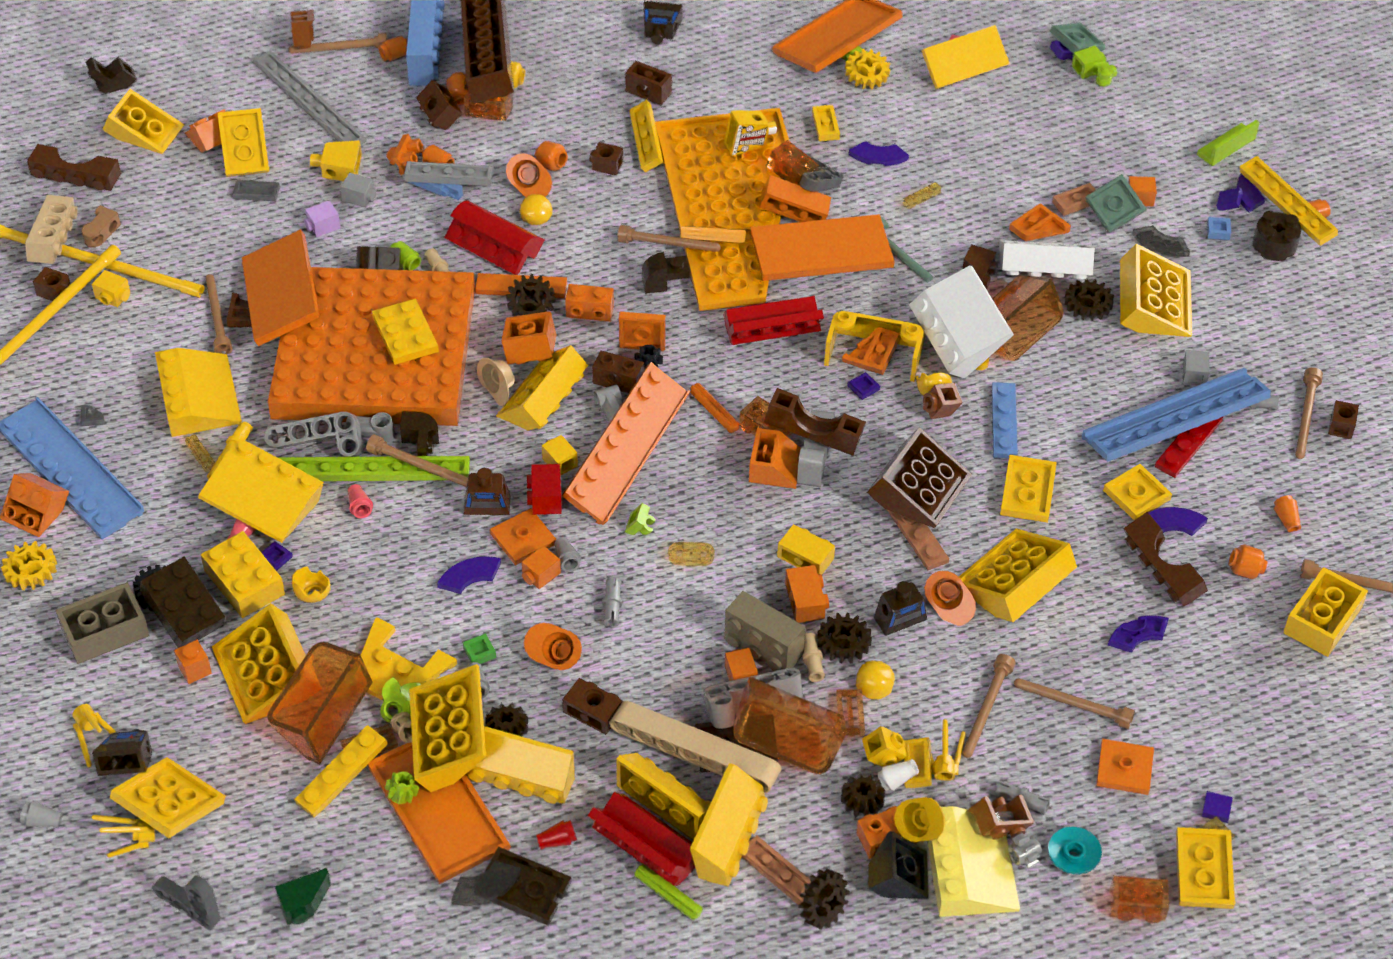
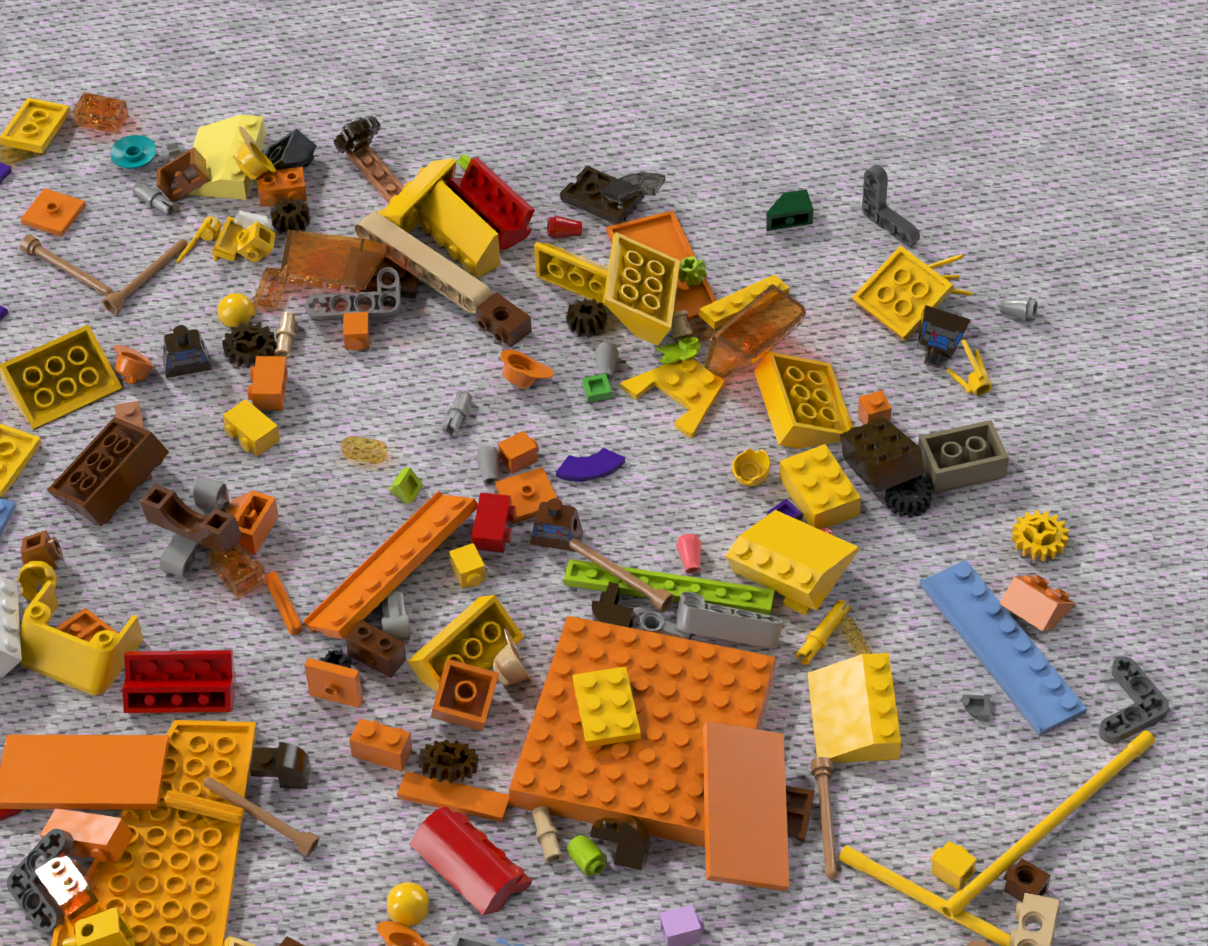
camera: 165 degrees left, 0 degrees up
(765, 631) = (324, 343): dark tan brick -> none
(863, 385) = (111, 603): dark purple tile -> none

